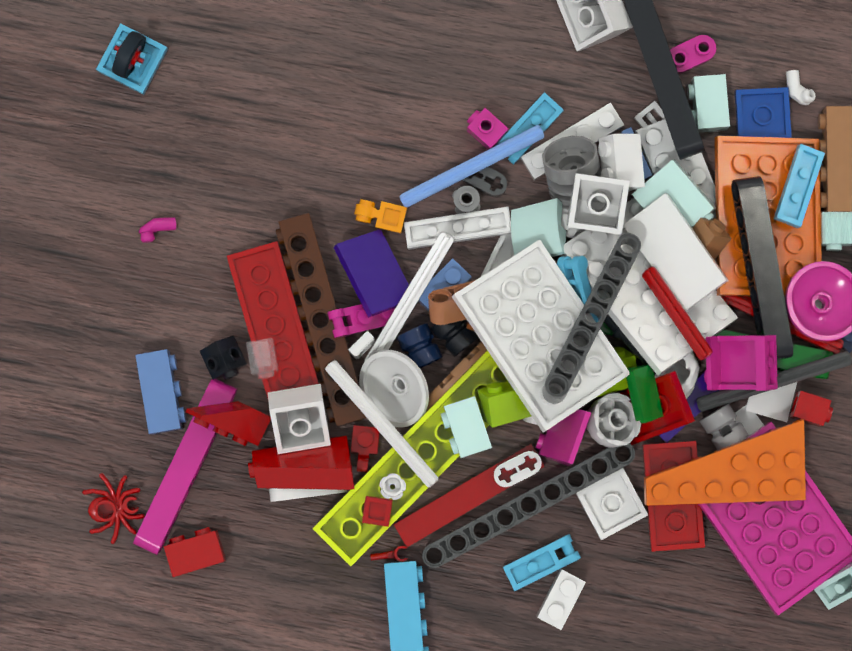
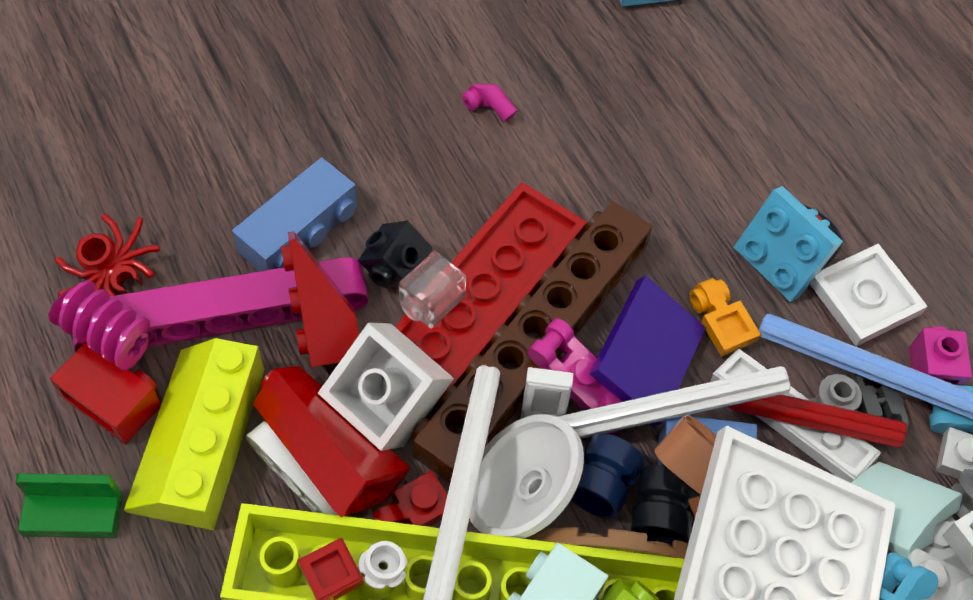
camera: 50 degrees right, 25 degrees down
(165, 534) = (101, 324): none -> dark pink piece
(246, 607) = (69, 505): none -> green panel
(248, 523) = (197, 434): none -> neon yellow slope
(371, 143) = (789, 243): none -> medium azure plate
(425, 129) = (867, 294): none -> white plate
(477, 215) = (827, 418): none -> red axle

